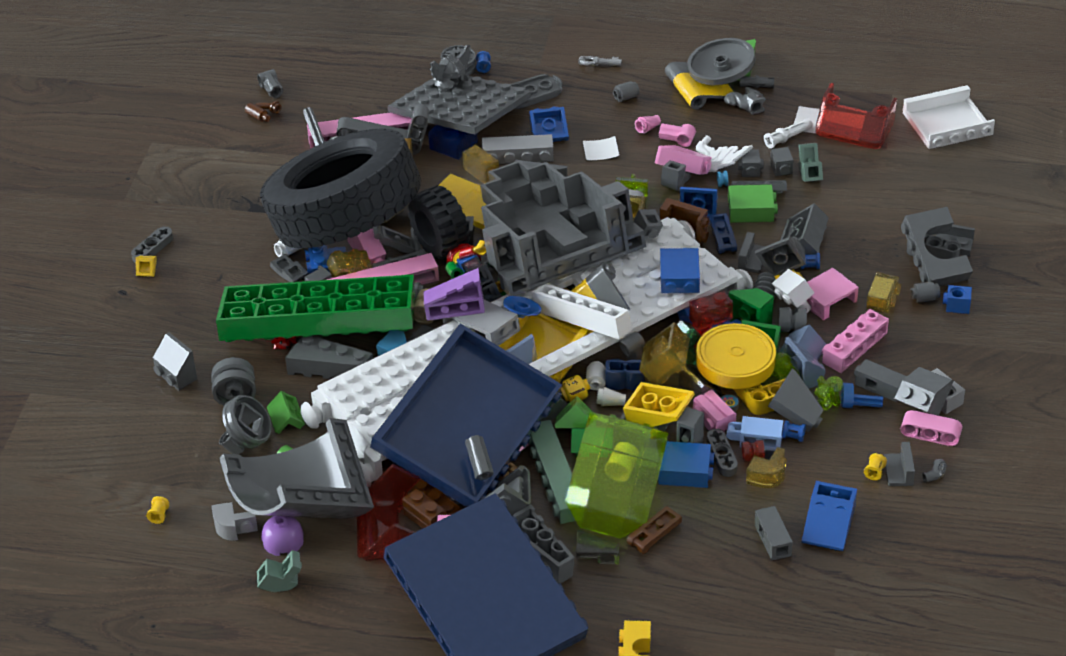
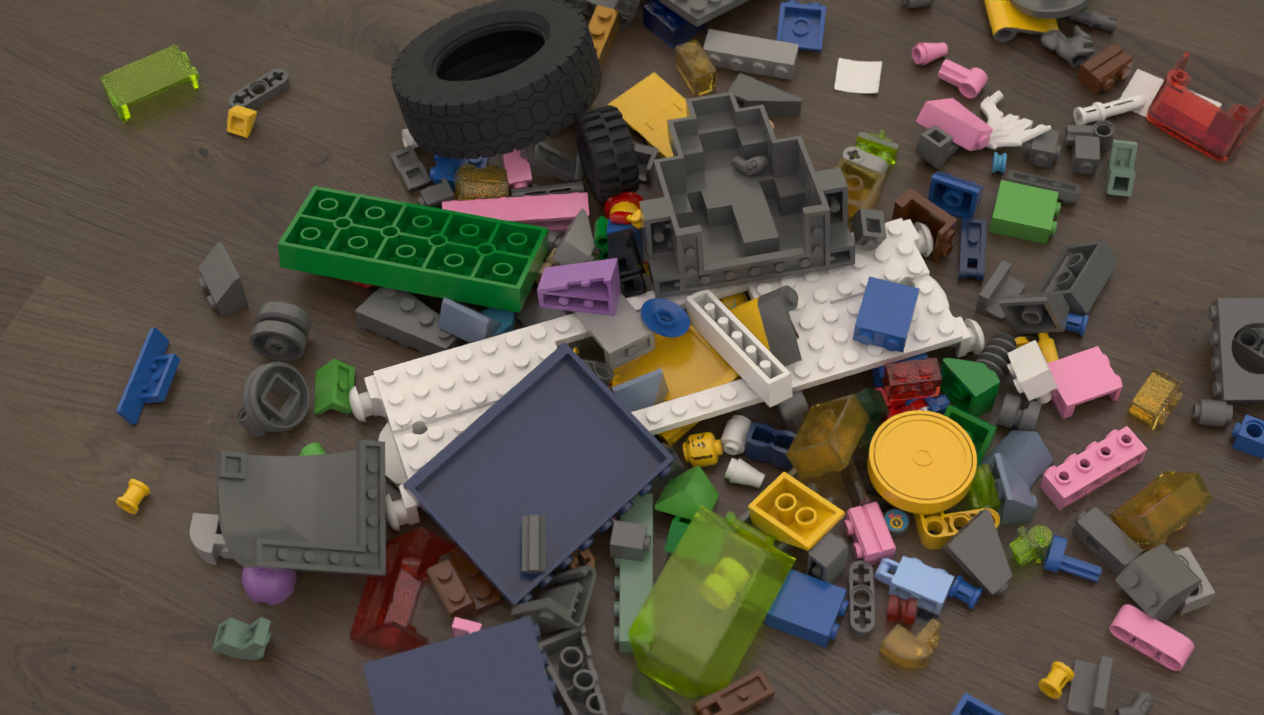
camera: 15 degrees right, 15 degrees up
(60, 252) = (148, 78): none -> clear neon green panel
(141, 435) = (149, 378): none -> blue bracket
(374, 341) = (466, 322): none -> sand blue slope
(435, 276) = (577, 242): none -> light grey slope
(545, 446) = (629, 541): none -> dark grey brick
(550, 204) = (750, 166): none -> dark grey arm
(777, 108) = (1105, 69): none -> reddish brown brick
(790, 142) = (1101, 129): none -> dark grey piece
(912, 347) = (1162, 507): none -> clear yellow brick

